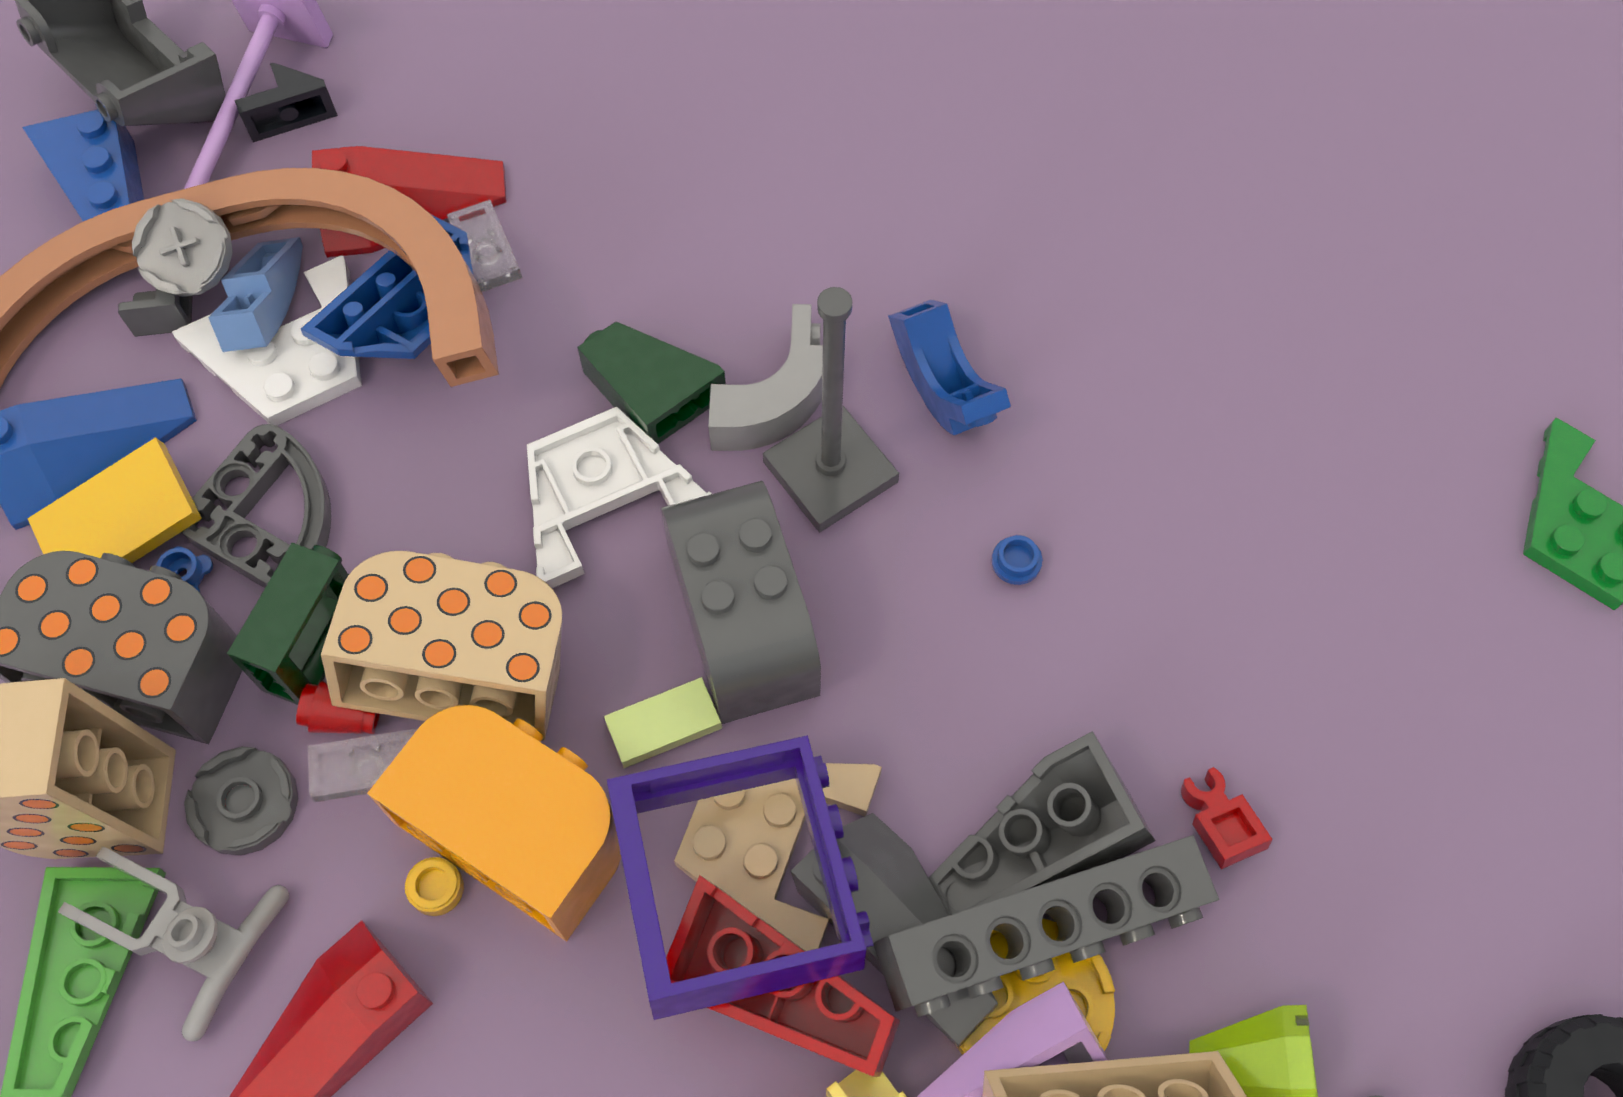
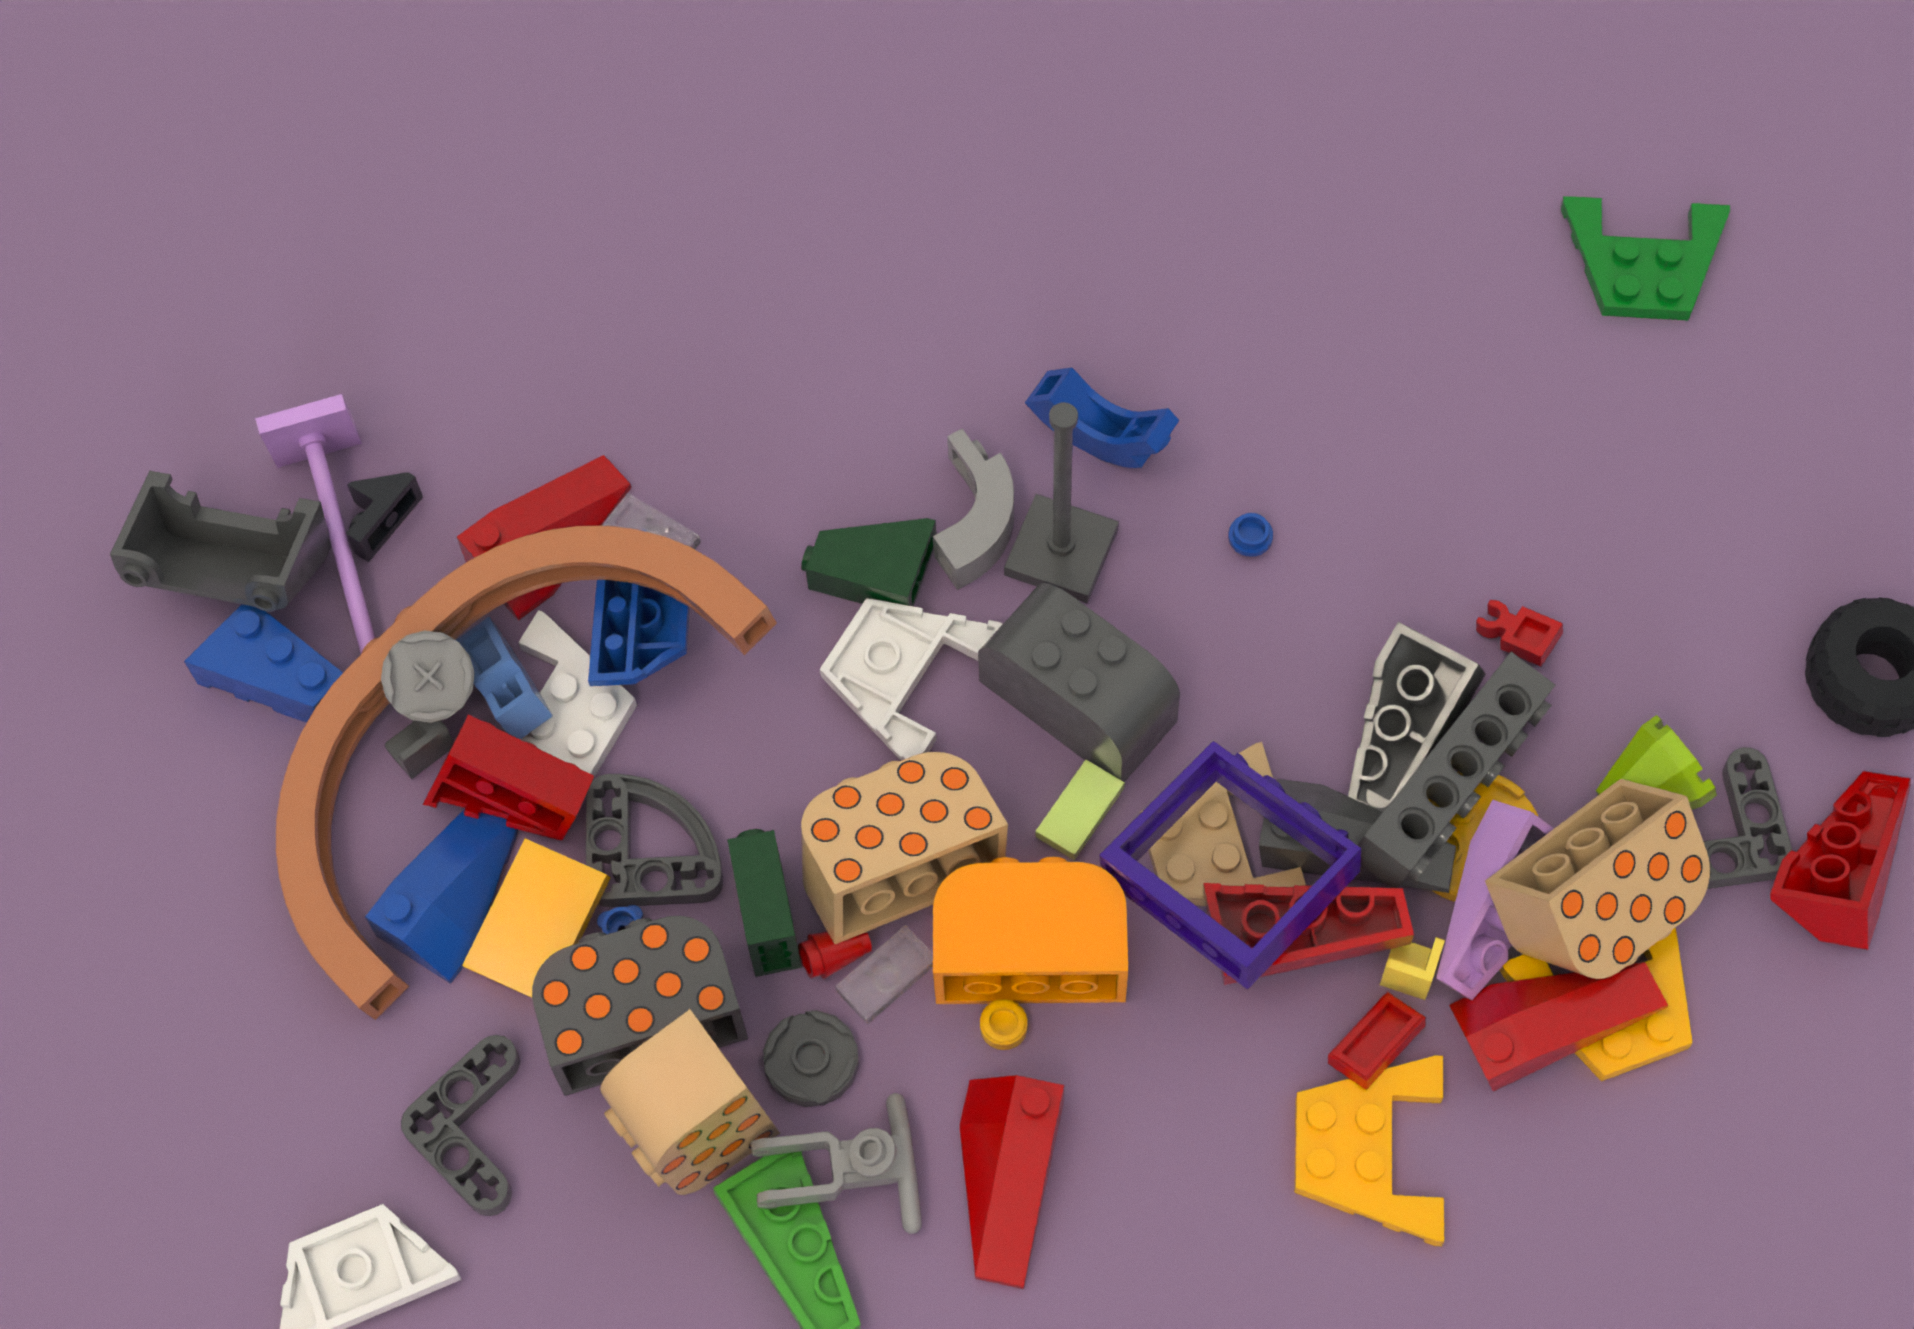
camera: 30 degrees left, 0 degrees up
(185, 376) = (509, 780): none -> red wedge

